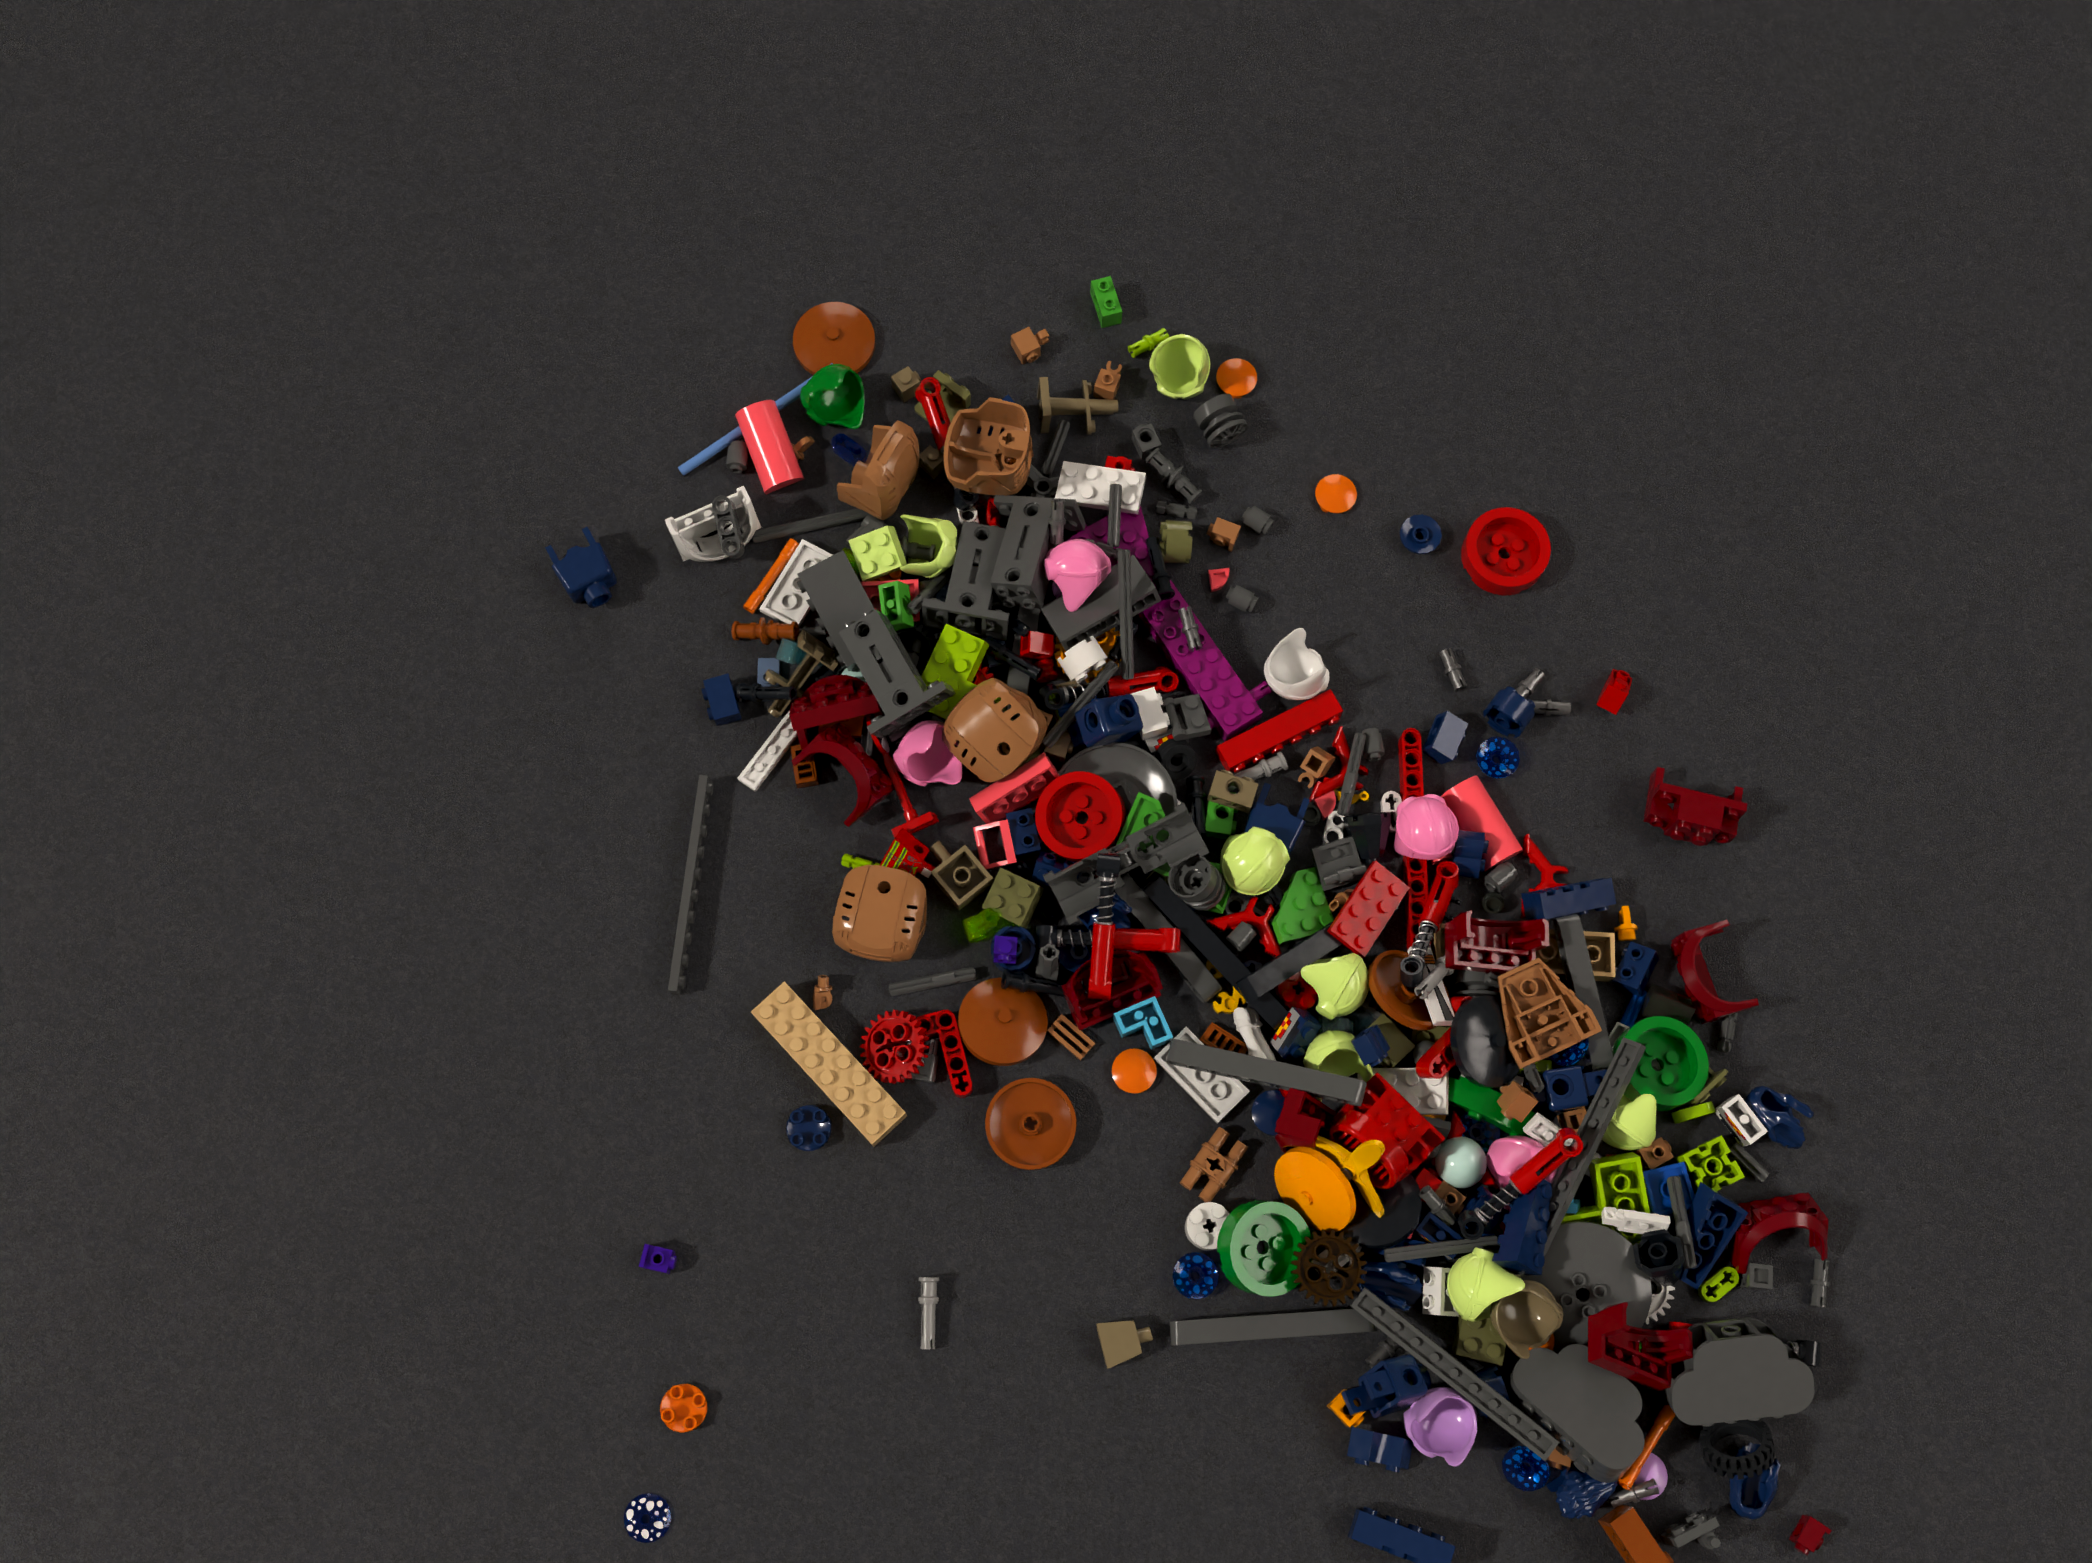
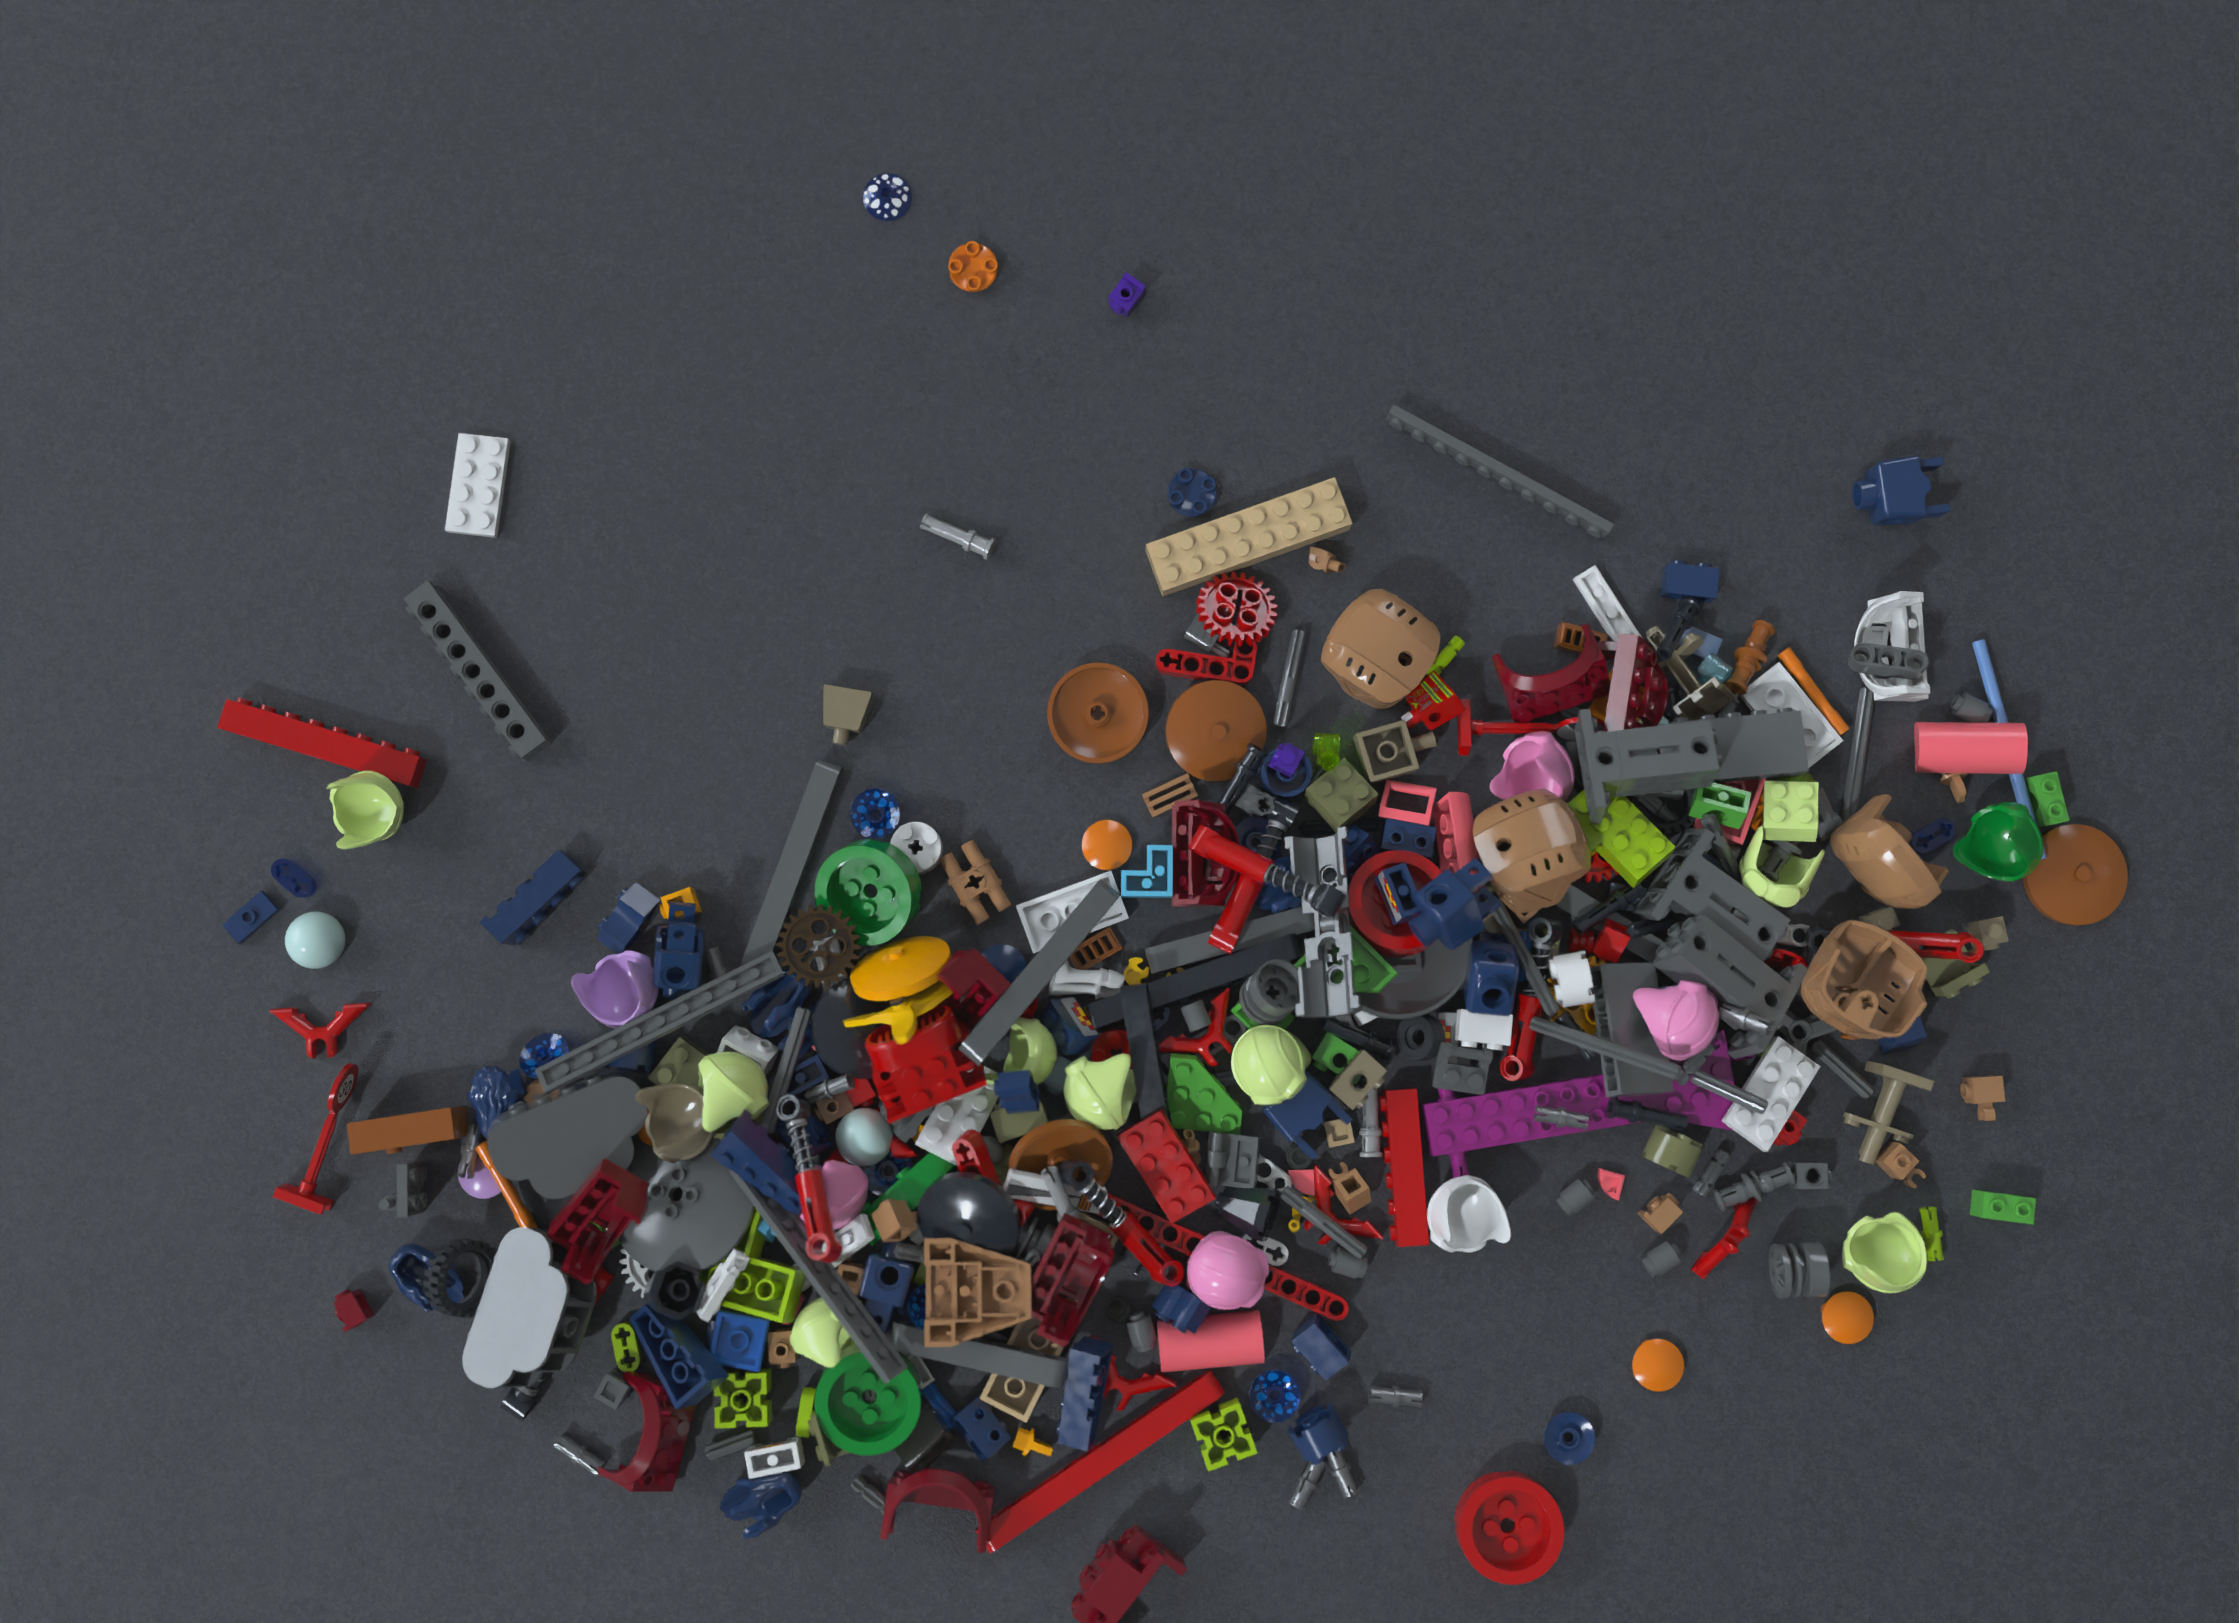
camera: 115 degrees right, 10 degrees up
(785, 378) = (2047, 799): none -> bright green brick
(1072, 766) = (1451, 909): none -> dark blue piece
(1074, 816) = (1398, 893): none -> dark blue brick
(1224, 476) = (1729, 1242): none -> red piece
(1278, 792) = (1338, 1133): none -> tan tile
(1546, 770) = (1238, 1440): none -> lime brick
(1608, 865) = (1102, 1459): none -> red beam
(1615, 691) = (1294, 1568): red slope -> none
(1681, 1221) = (698, 1333): dark grey axle -> none

